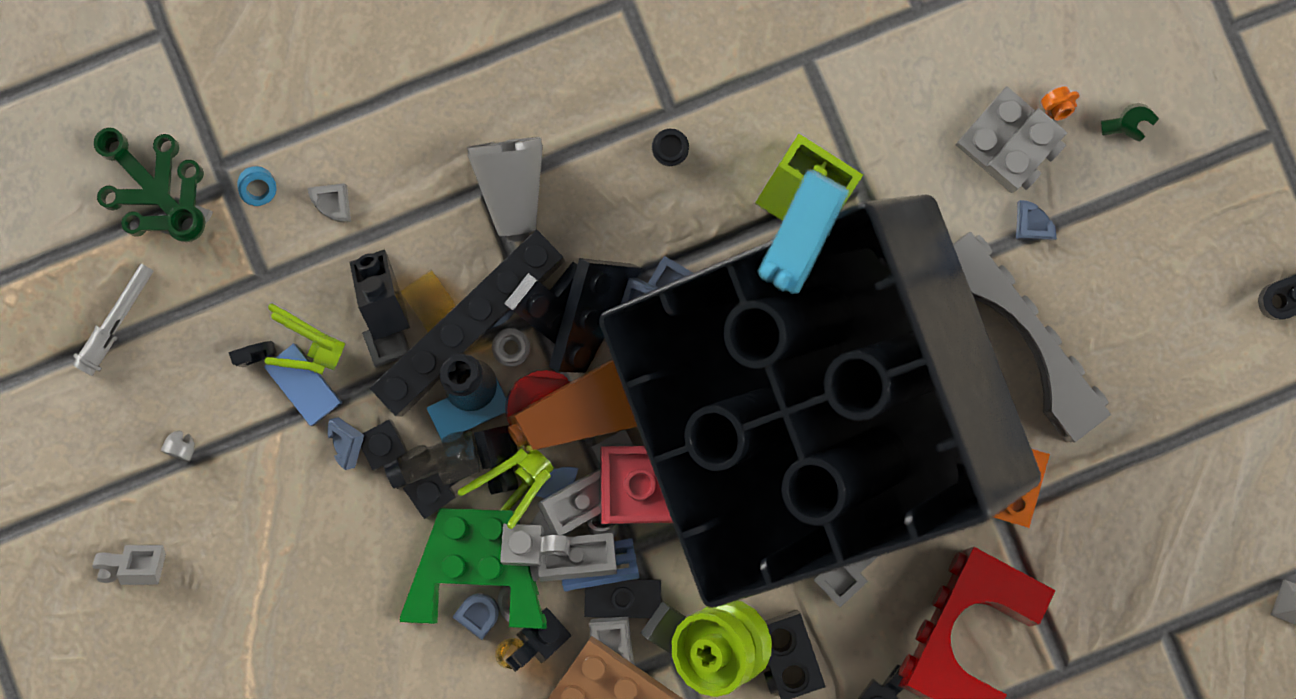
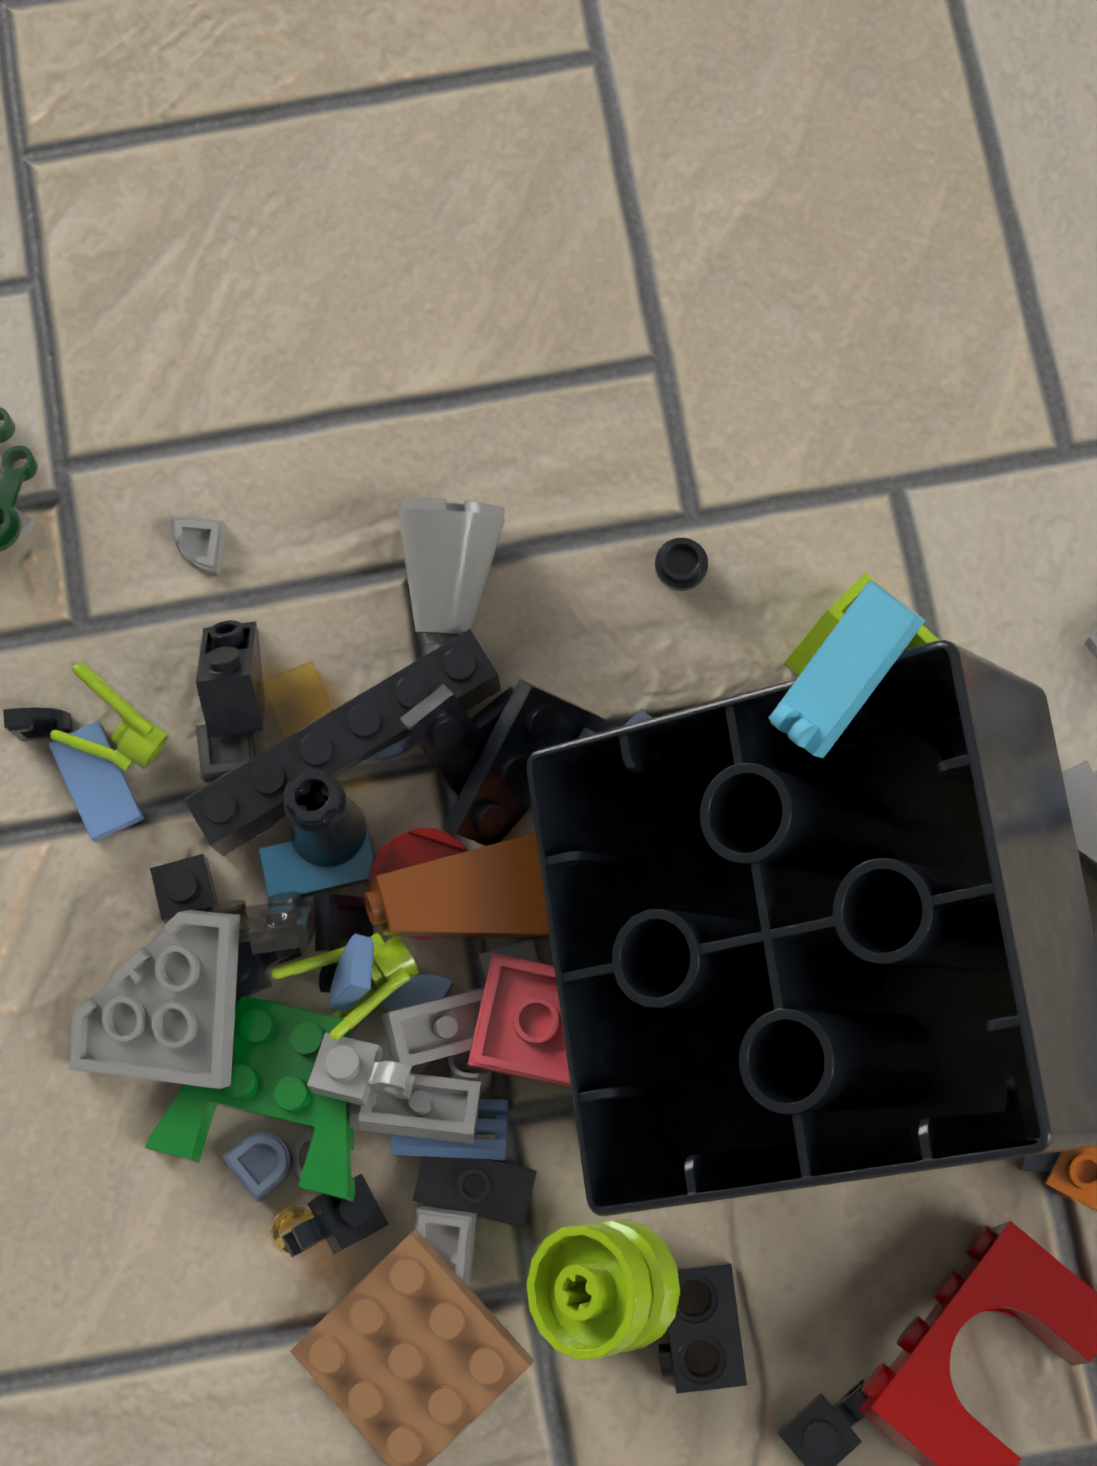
camera: 20 degrees right, 10 degrees down
(256, 173) = (103, 483): dark azure piece -> none
(346, 442) = (135, 873): sand blue tile -> none
(392, 530) = (166, 1007): none -> light grey plate
(499, 344) = (388, 777): light grey plate -> none
(512, 481) = (352, 973): none -> medium blue tile
(662, 626) = (521, 1239): dark grey tile -> none
(843, 582) = (805, 1227): light grey plate -> none

